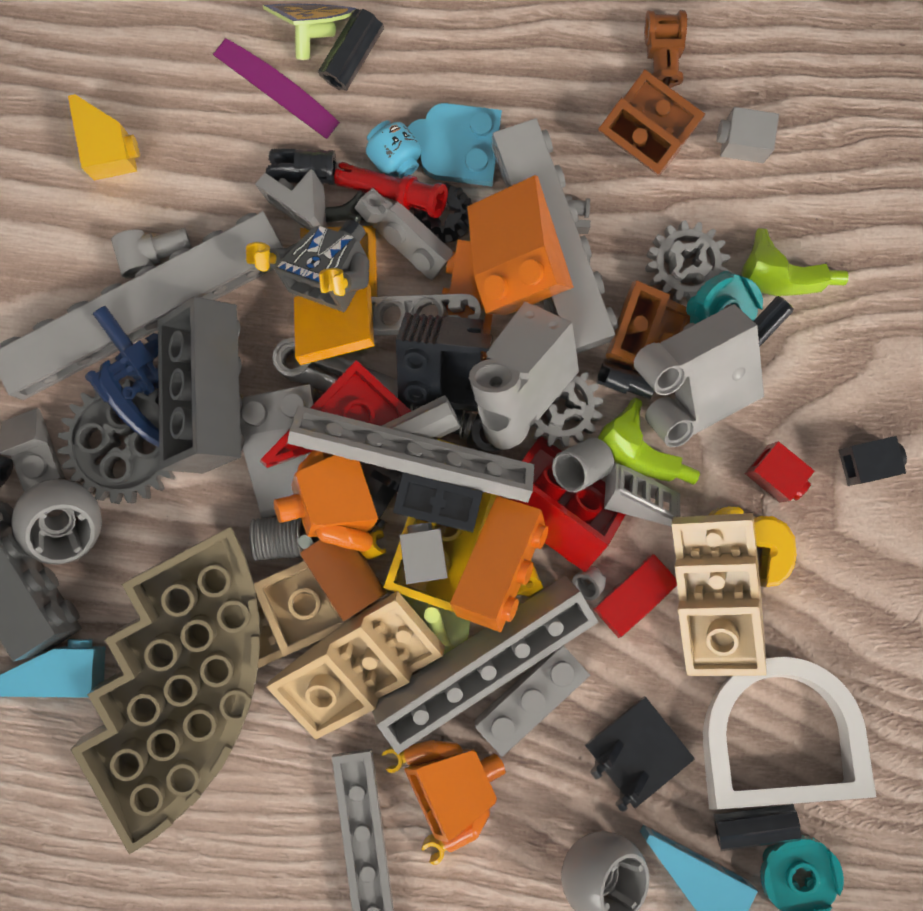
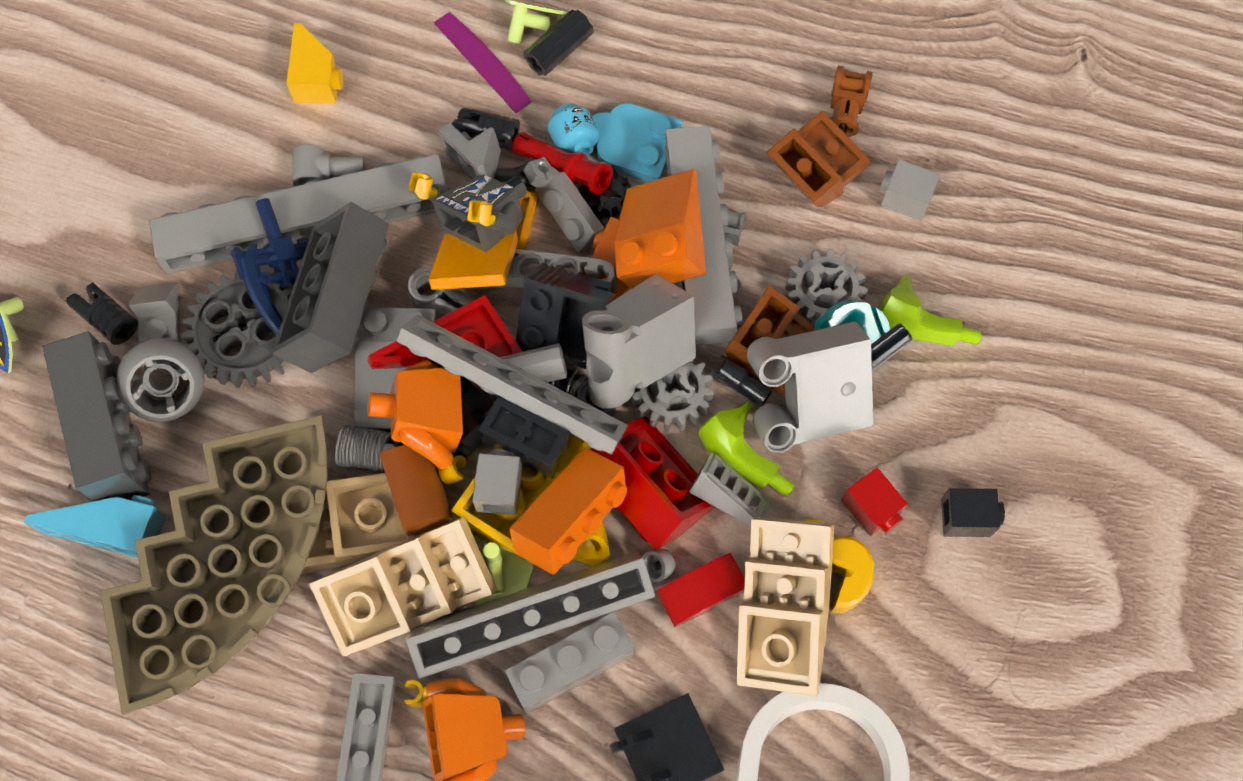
camera: 15 degrees right, 15 degrees down
(582, 464) = (678, 444): light grey piece -> none

